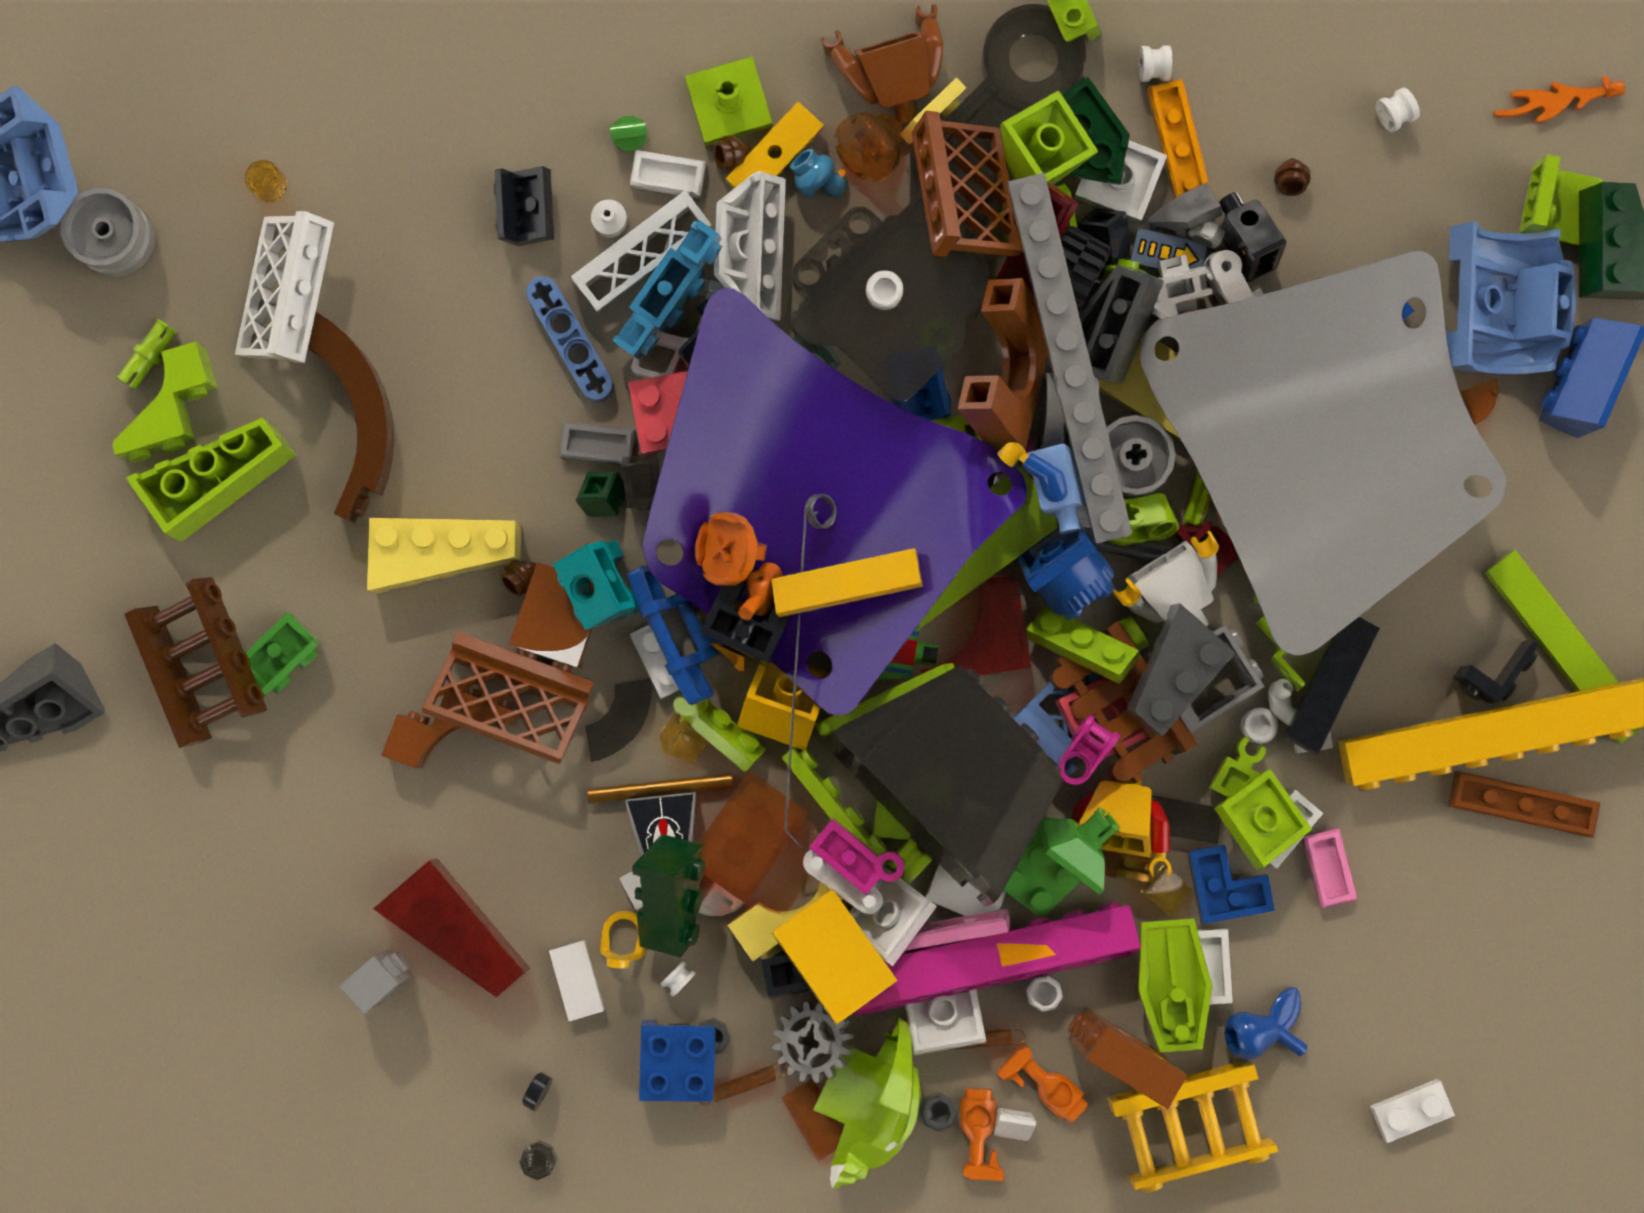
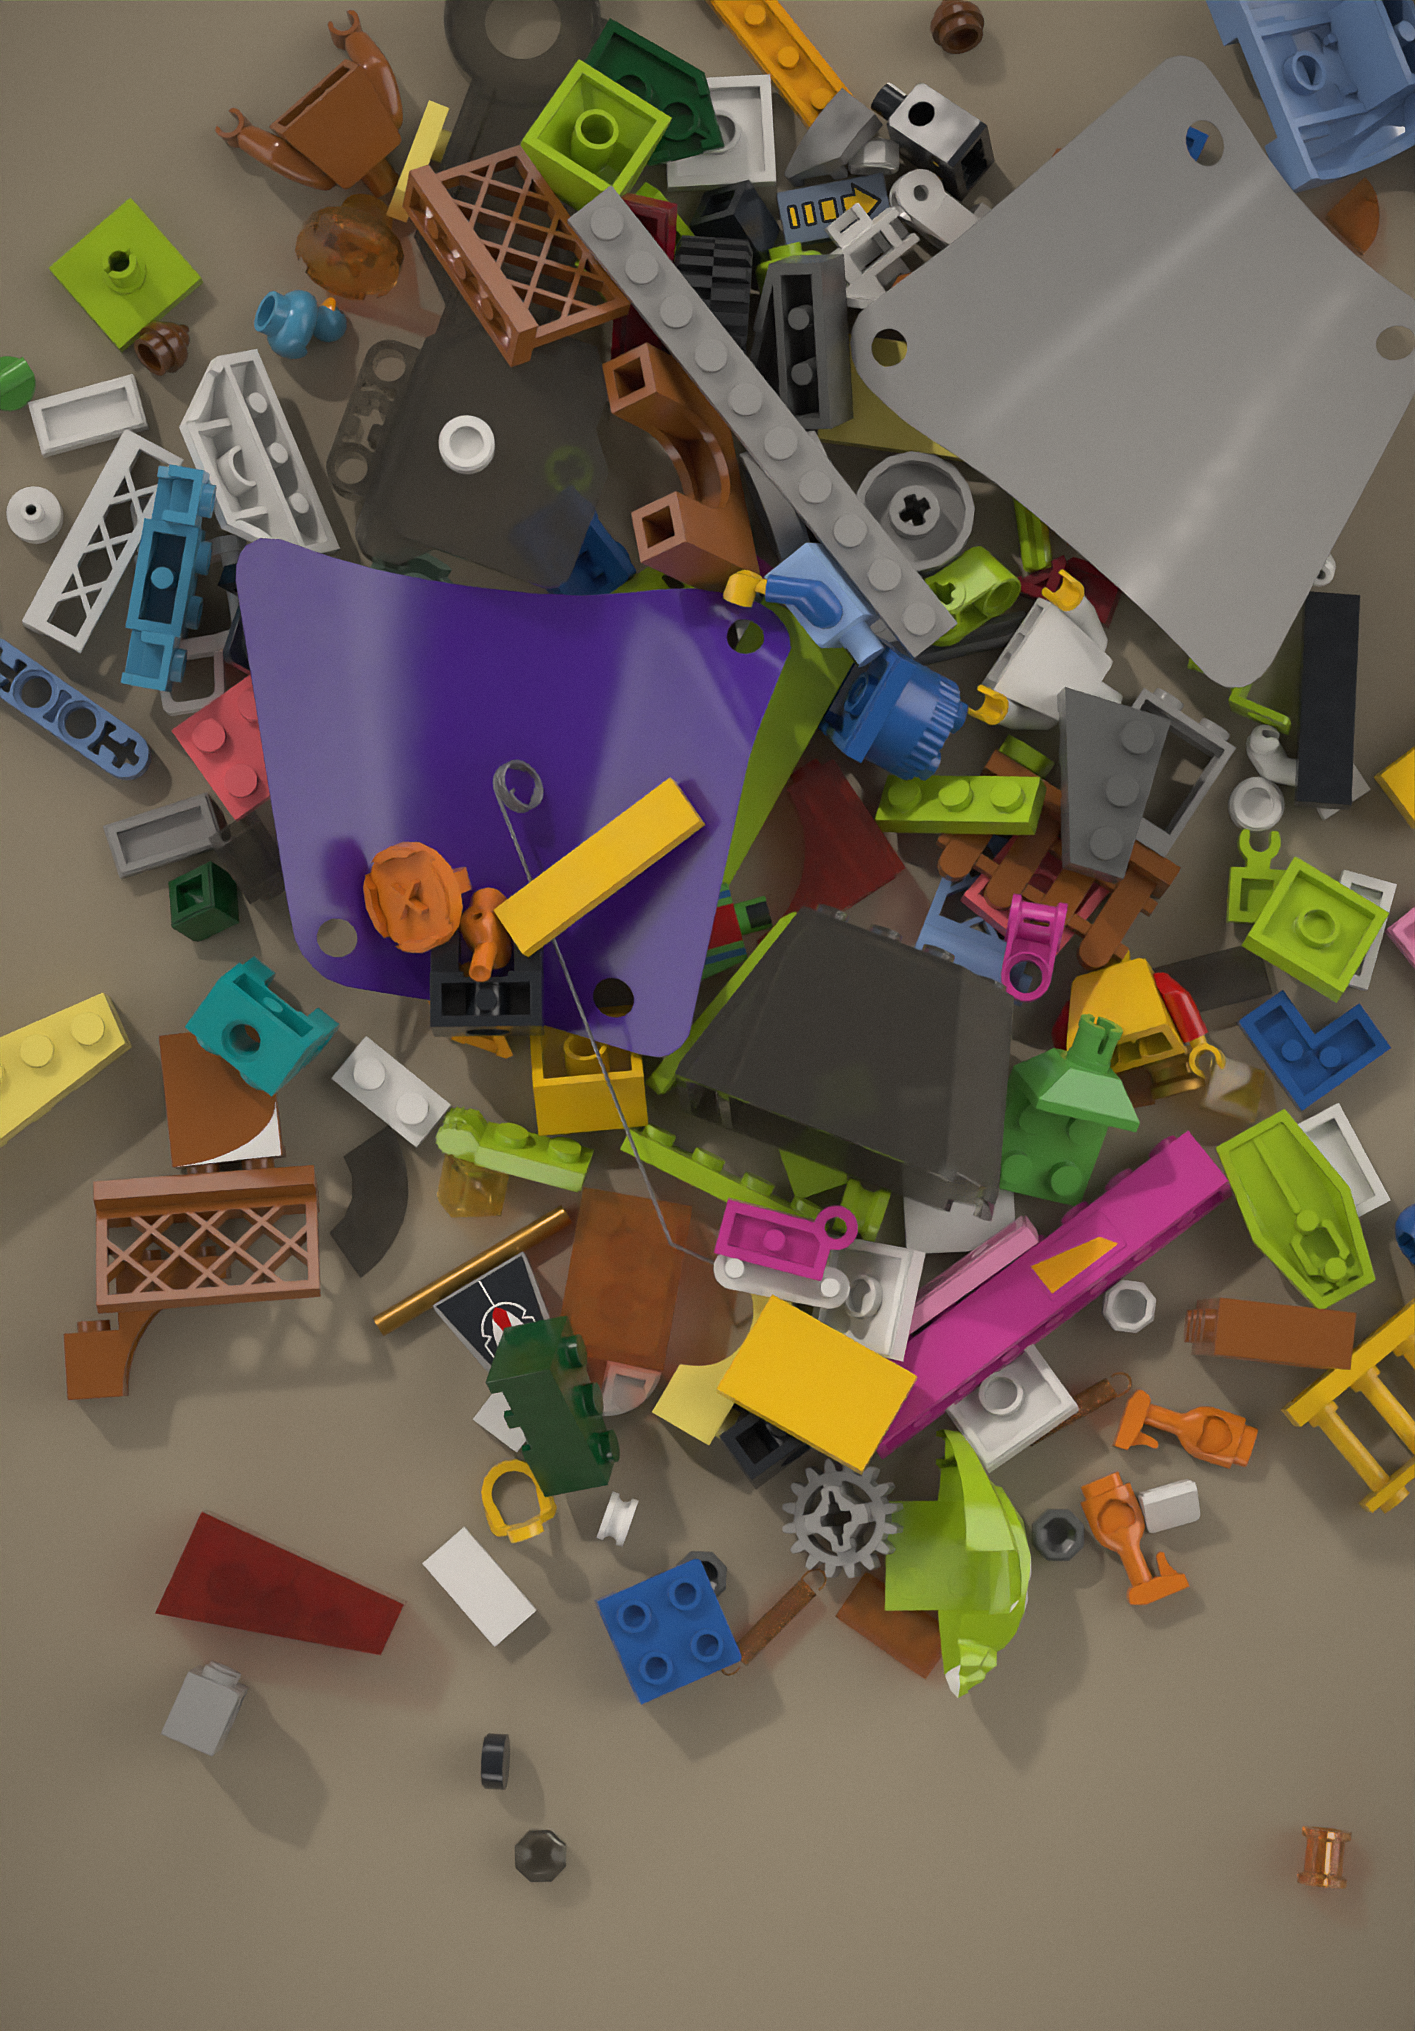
camera: 25 degrees left, 0 degrees up
(517, 576) = (140, 1070): reddish brown plate -> none
(684, 669) = (431, 1087): blue bar -> none
(788, 137) = (231, 288): yellow tile -> none

